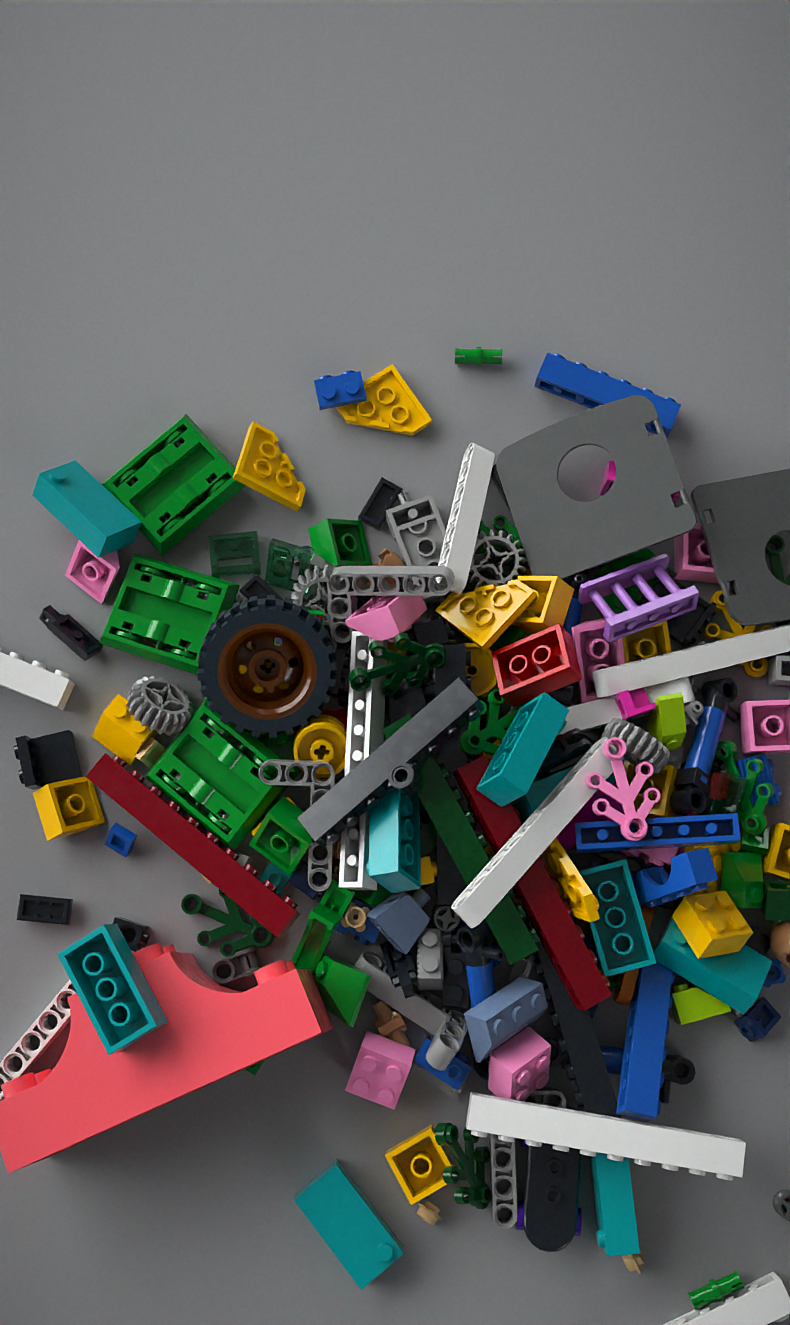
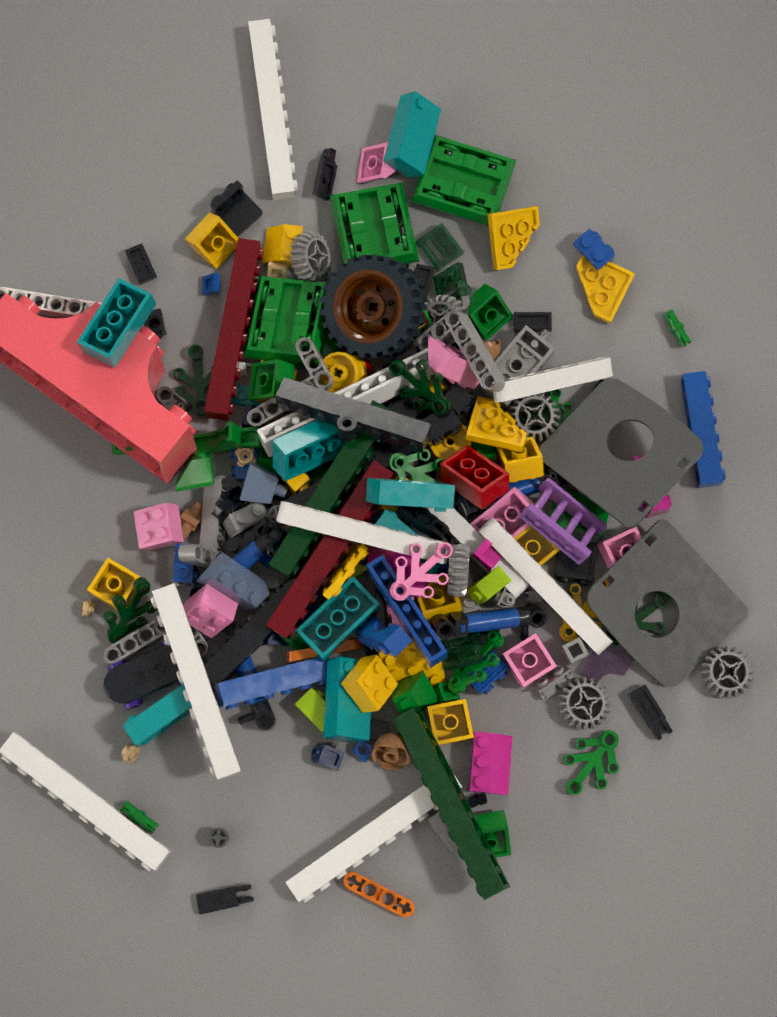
camera: 60 degrees right, 0 degrees up
(349, 1224) = (54, 561): teal brick -> none
(719, 785) = (466, 642): clear red tile -> none

